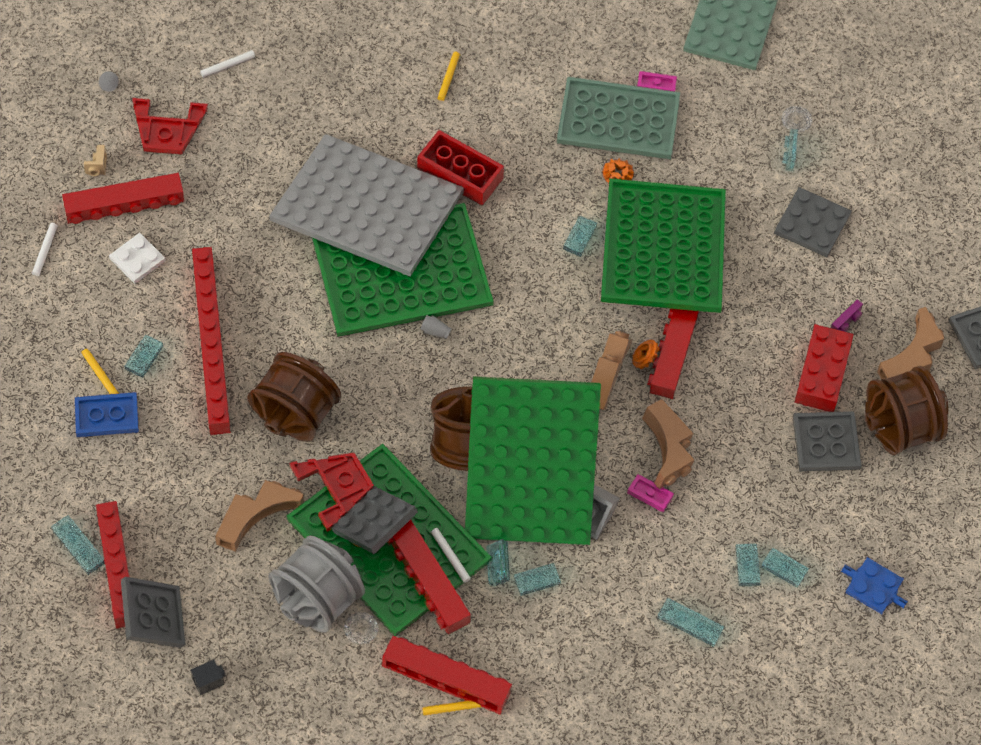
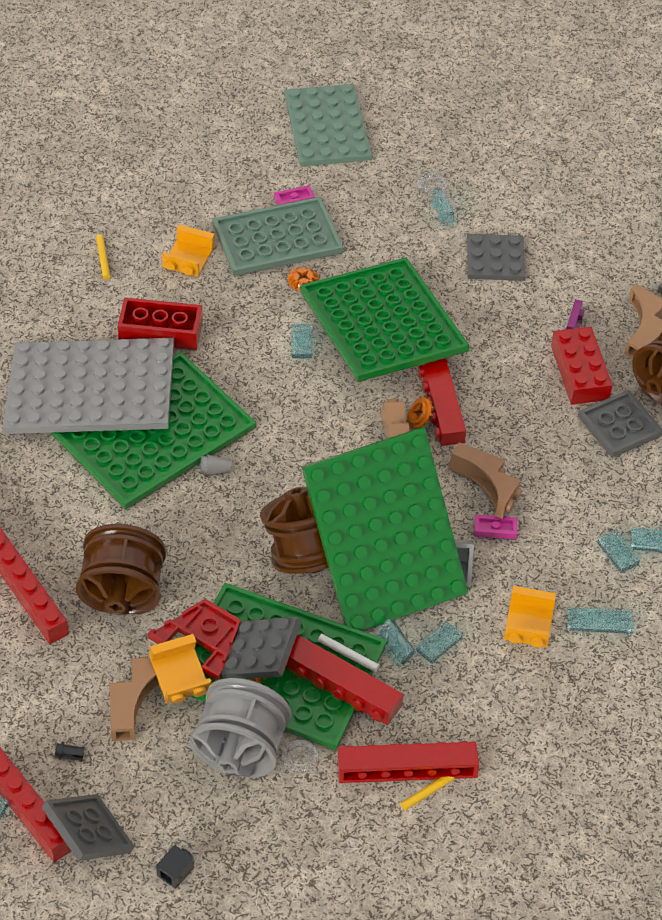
camera: 25 degrees left, 10 degrees down
(171, 536) = (69, 752): none -> black pin
(297, 508) = (178, 669): none -> light orange panel
(528, 102) = (189, 251): none -> light orange panel
(630, 592) = (529, 616): none -> light orange panel

